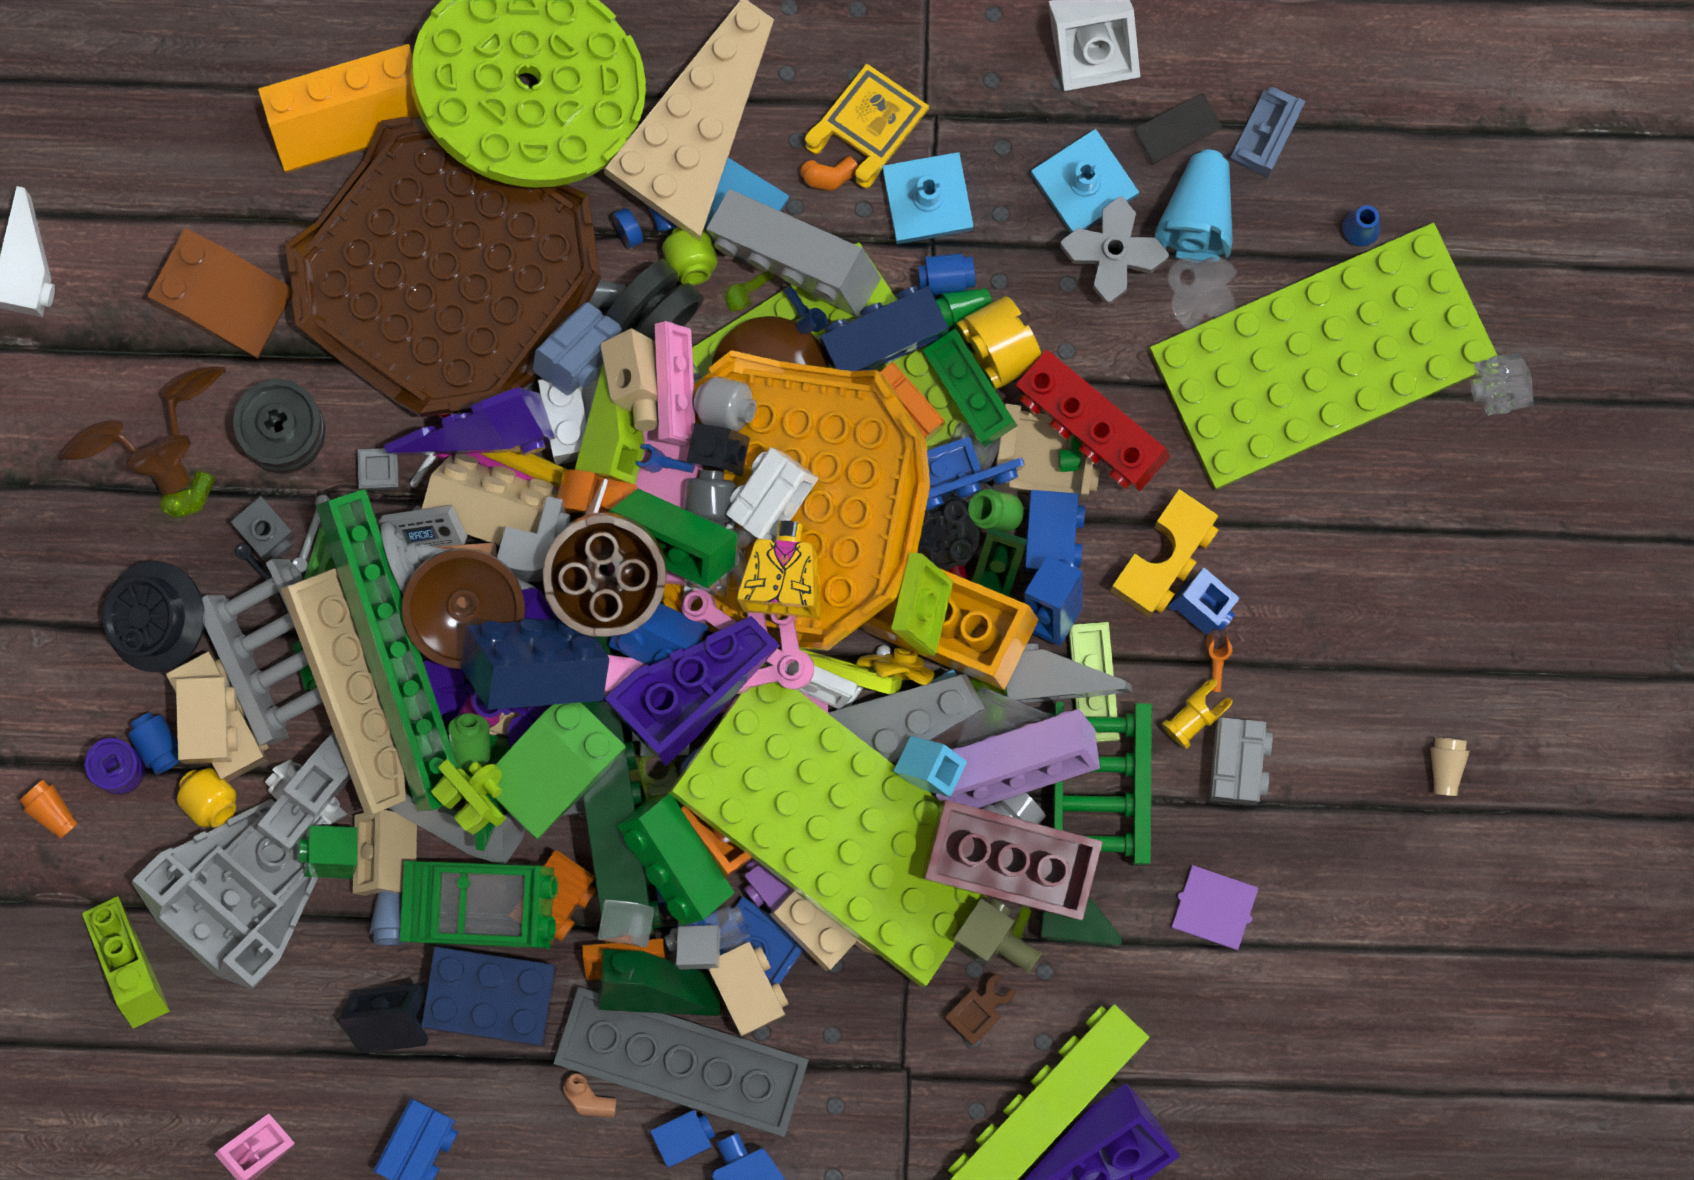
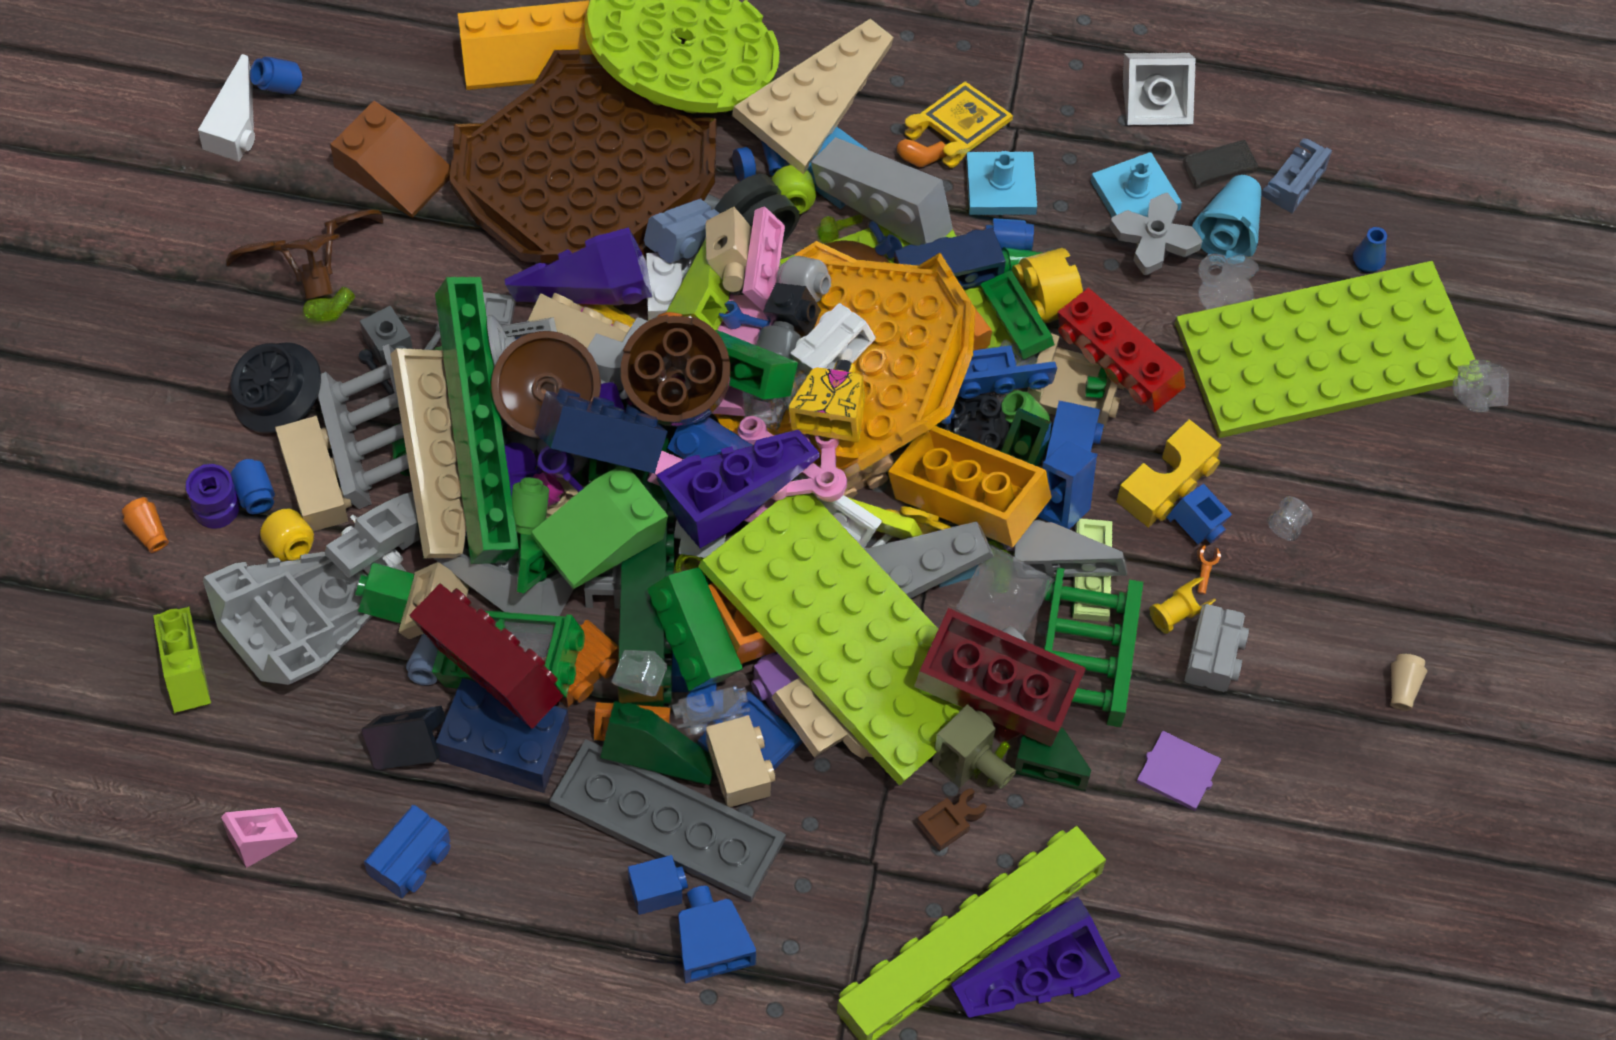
camera: 10 degrees right, 20 degrees down
(61, 203) = (276, 75): none -> blue brick
(205, 720) = (300, 461): tan brick -> none
(276, 403) = (417, 259): pearl dark grey wheel -> none
(459, 935) = (488, 654): none -> dark red brick
(479, 809) = (526, 532): lime hips -> none
(585, 1101) = (572, 840): nougat arm -> none
(698, 947) = (701, 711): light grey tile -> none
(922, 604) = (951, 450): lime plate -> none
(930, 766) = (936, 591): medium azure brick -> none
(1026, 759) = (1025, 600): lavender brick -> none
(1303, 587) = (1290, 518): none -> clear wheel

